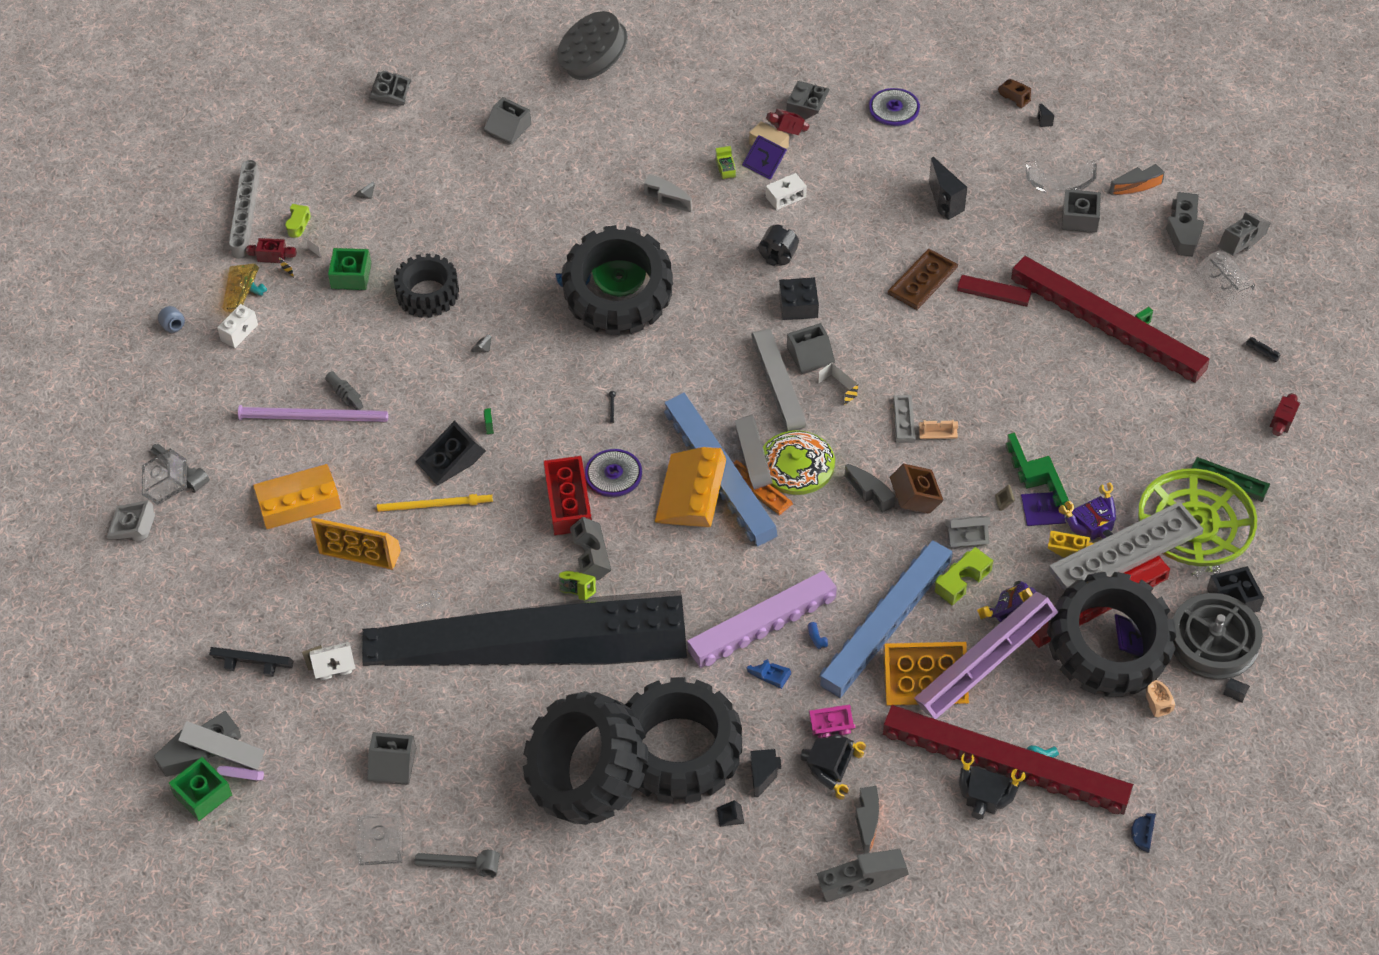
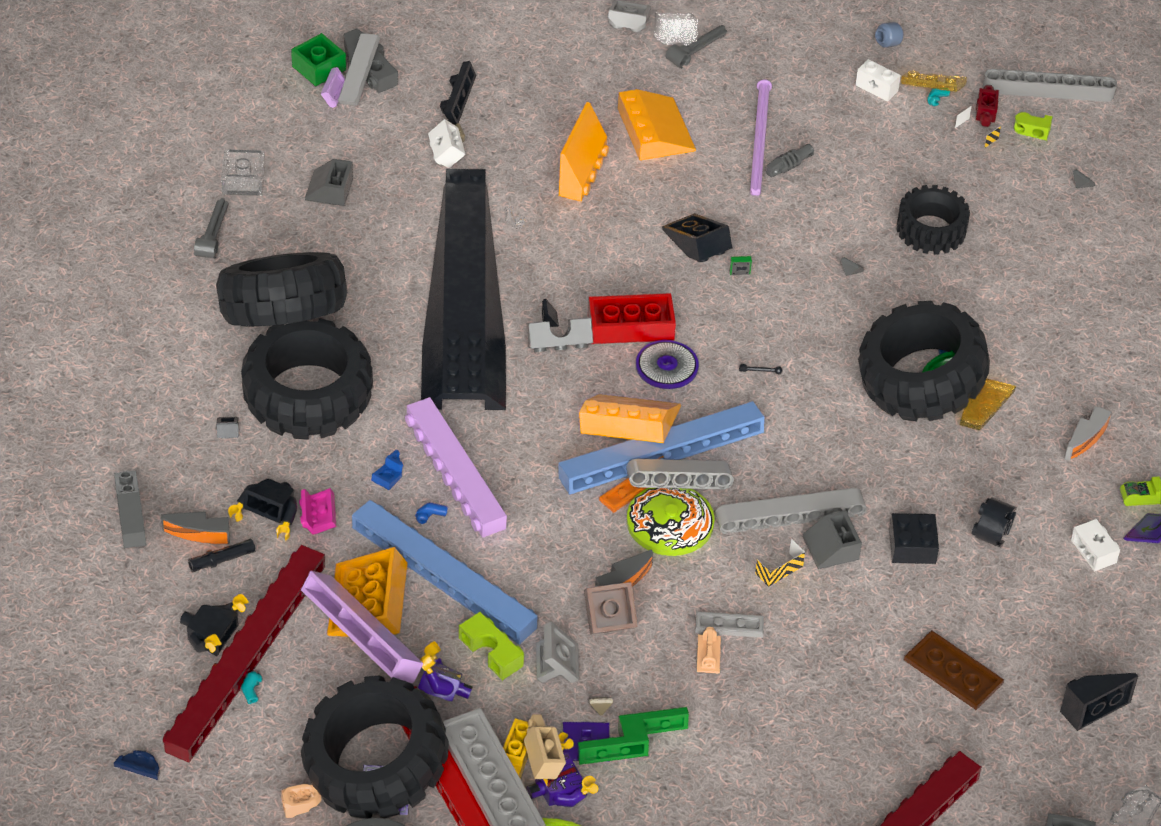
camera: 90 degrees right, 5 degrees down
(349, 269) = (957, 160): green brick -> none
(472, 499) = (638, 251): yellow bar -> none
(561, 564) = (549, 313): none -> black slope
(577, 584) = (510, 324): lime leg -> none
(764, 769) = (268, 450): black slope -> none
(901, 802) = (216, 557): none -> black pin
(994, 290) = (933, 740): dark red tile -> none
(1084, 516) = (543, 749): none -> tan hinge

